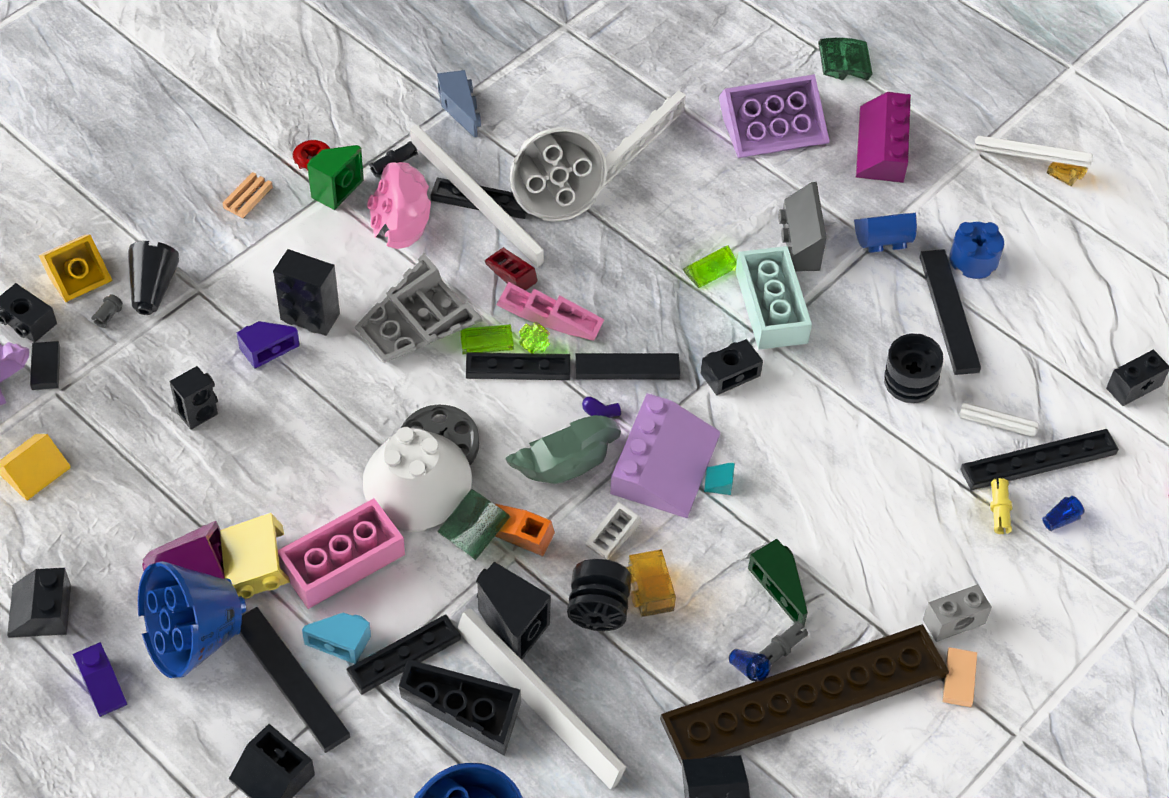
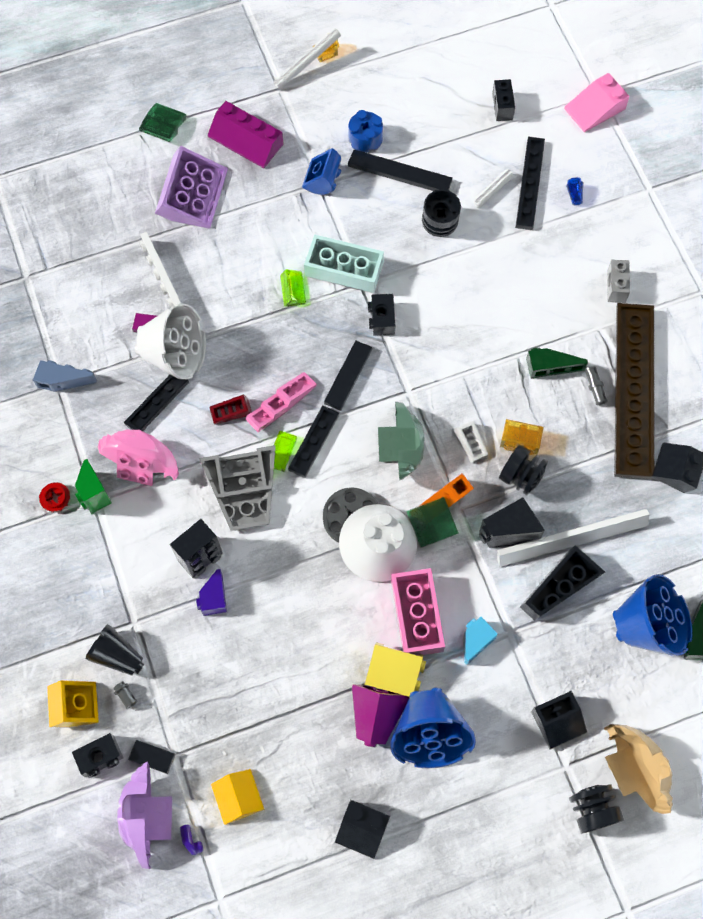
camera: 60 degrees left, 15 degrees up
(99, 679) = (442, 806): dark purple slope -> none
(194, 397) = (244, 660): black brick -> none
(244, 192) = (59, 542): light nougat tile -> none
(292, 681) = (495, 681): black tile -> none
(392, 659) = (503, 606): black tile -> none
(399, 155) = (90, 443): black pin -> none
(477, 195) = (160, 403): white tile -> none
(534, 337) = (300, 420): clear neon green gear -> none
(595, 407) = (375, 408): dark purple arm -> none
(664, 457) = (431, 386): lavender slope -> none
(719, 479) = (462, 362): teal slope -> none
(751, 664) = (603, 408): clear blue cone -> none
(804, 228) = (298, 217): slope -> none
(961, 677) = (662, 305): light nougat tile -> none
(1001, 506) = (555, 220): light yellow pin -> none

